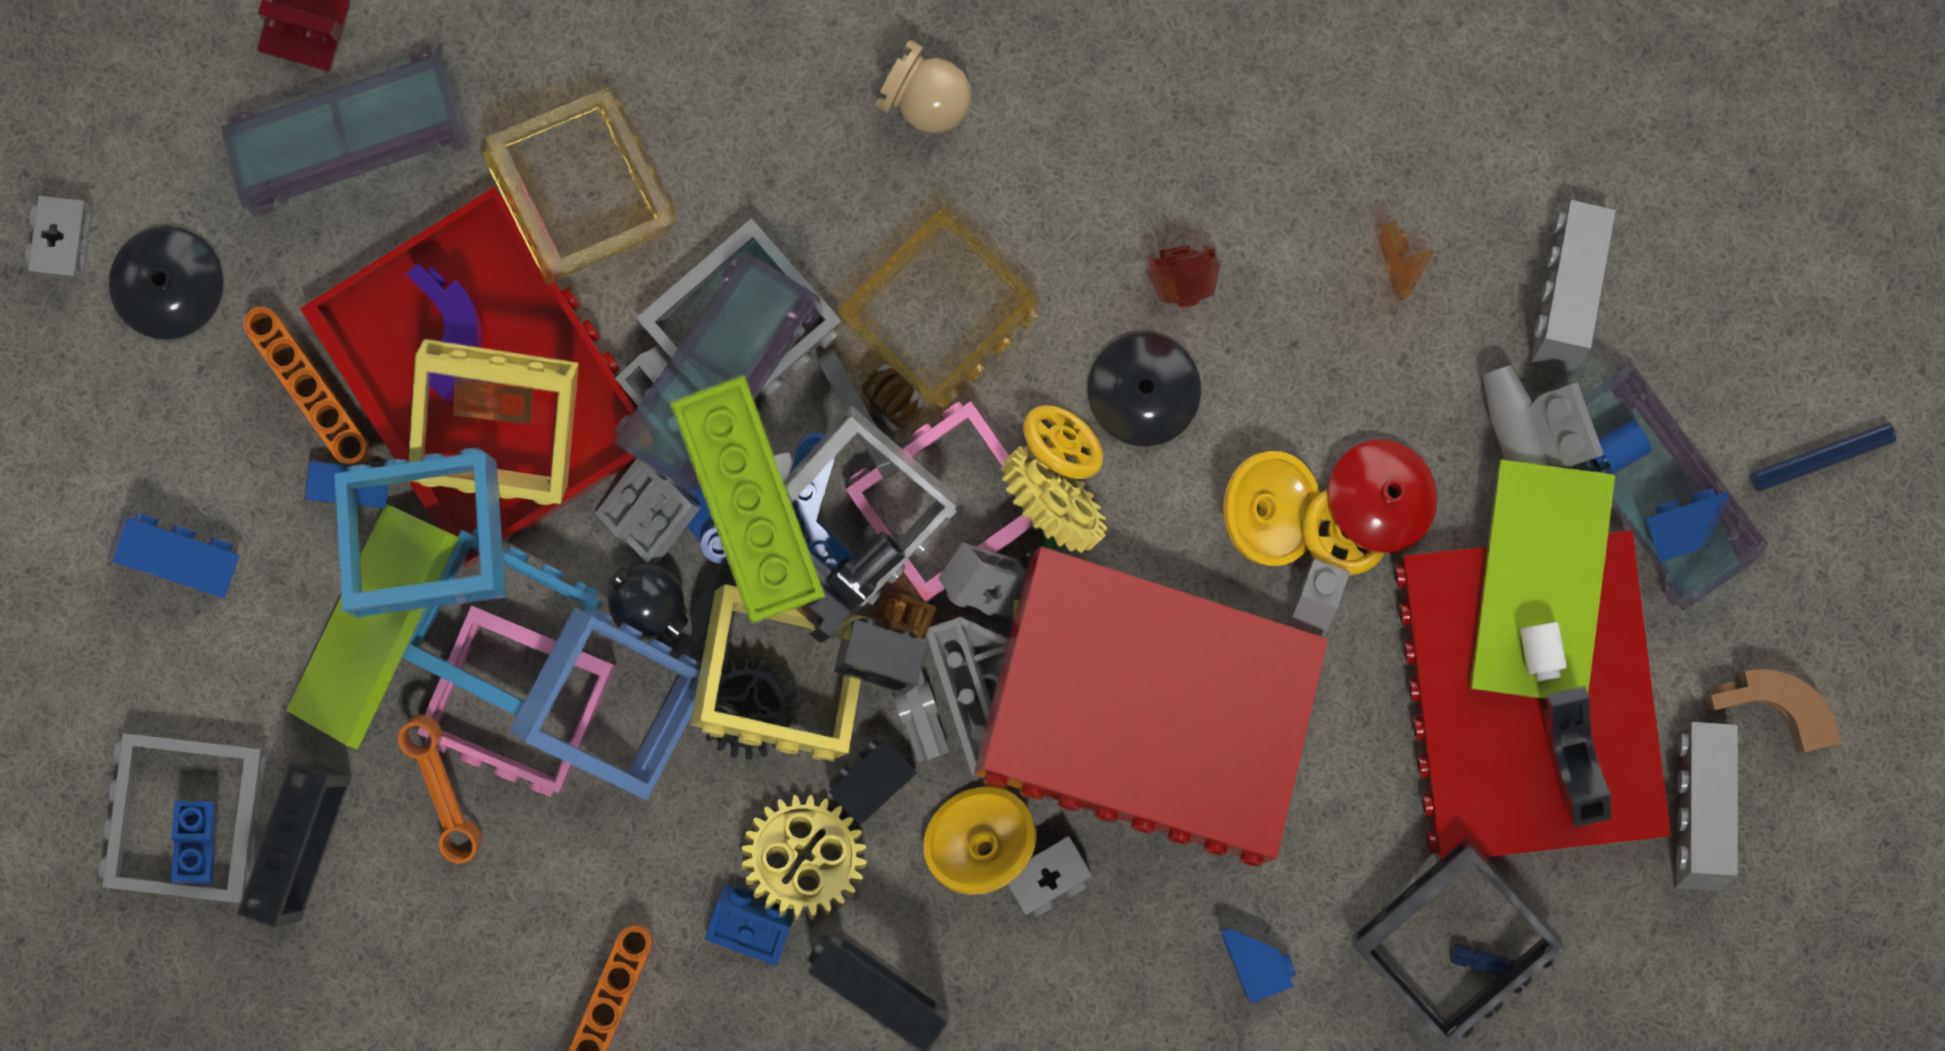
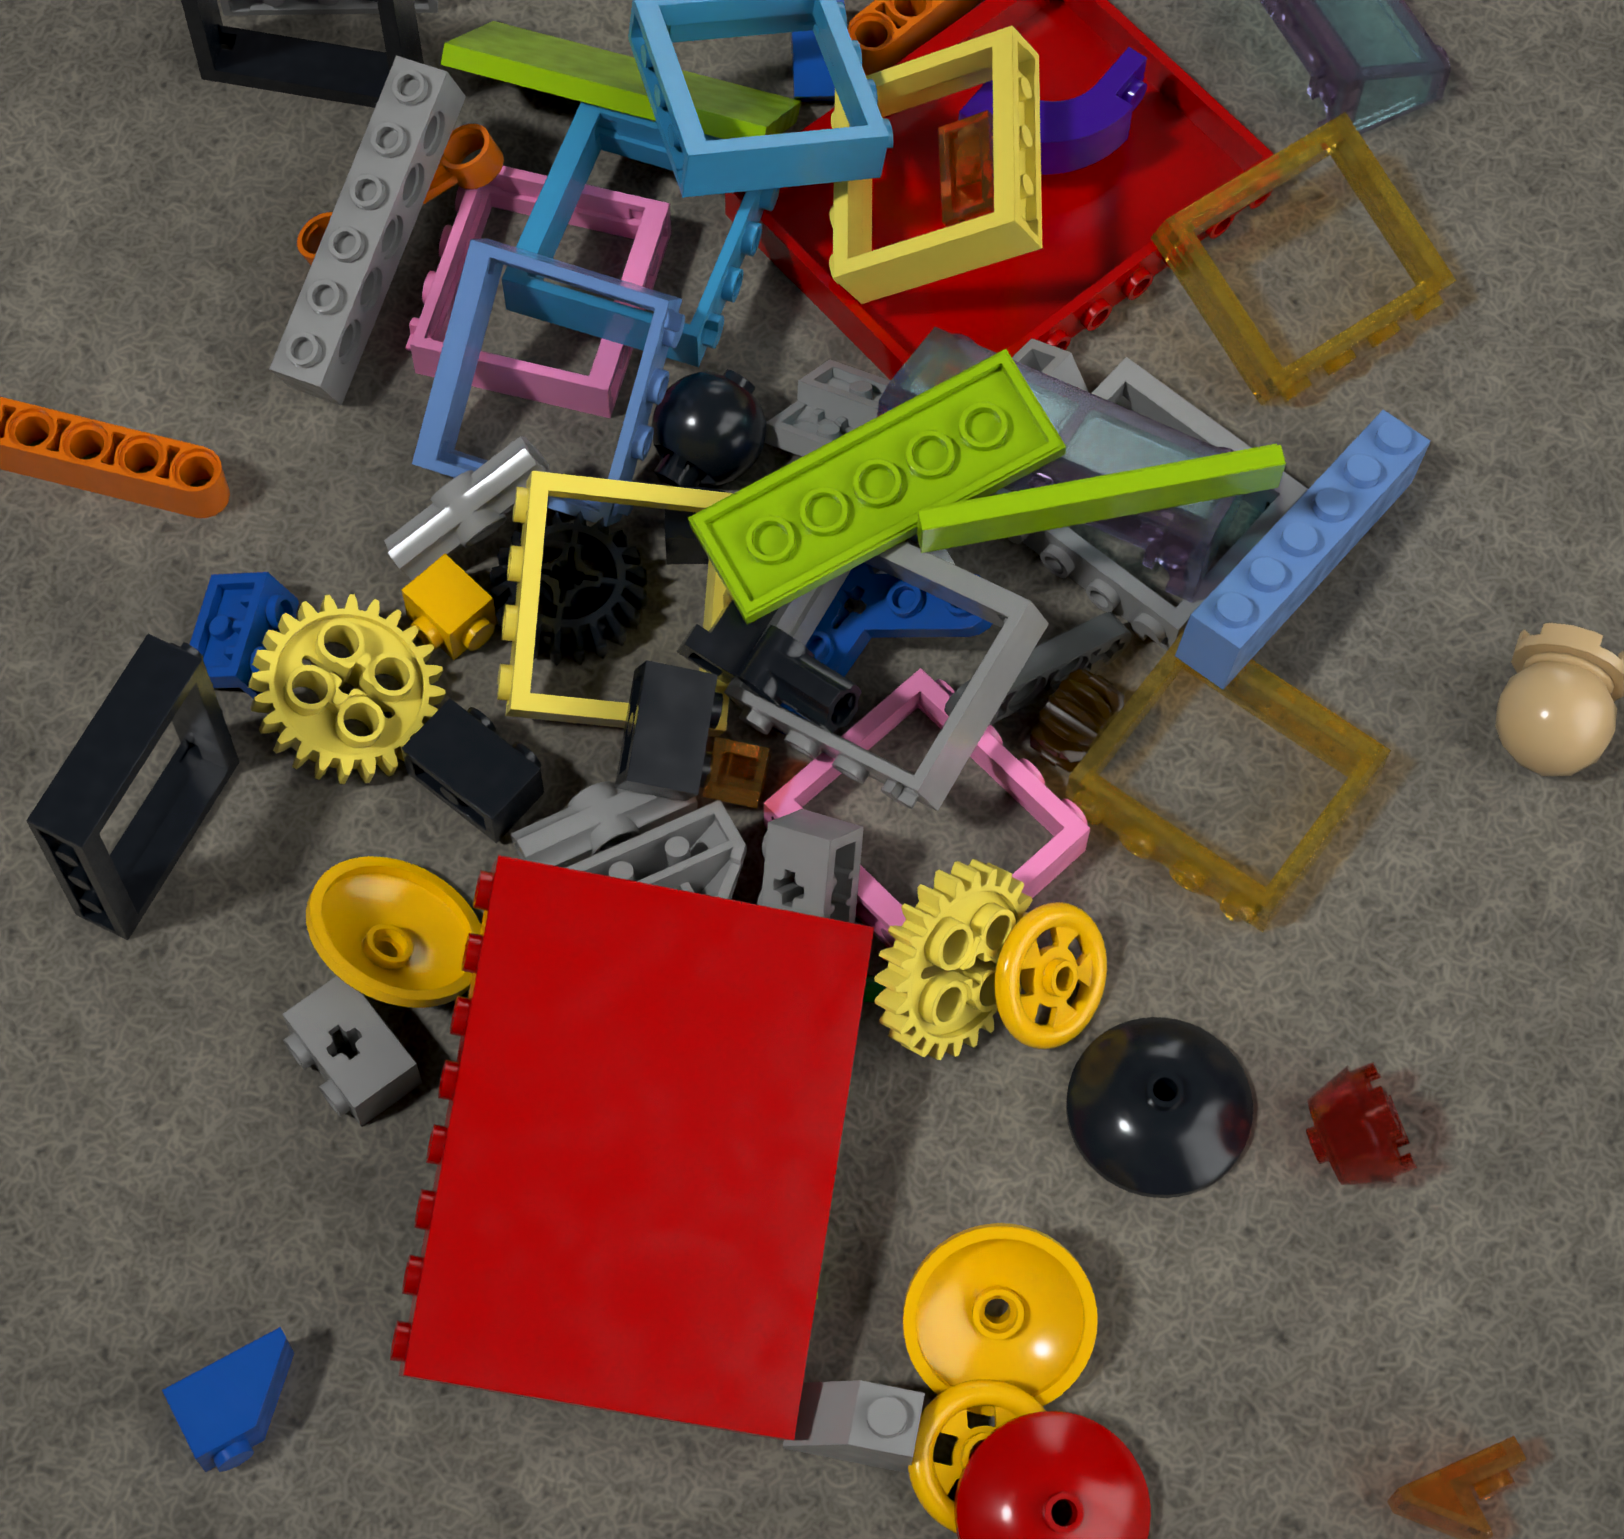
camera: 85 degrees right, 20 degrees down
(473, 811) = (368, 230): none -> light grey brick
(689, 765) = (465, 509): none -> light grey piece
(753, 786) = (449, 608): none -> yellow brick
(785, 360) = (1100, 498): none -> lime tile
(796, 229) = (1301, 549): none -> medium blue brick

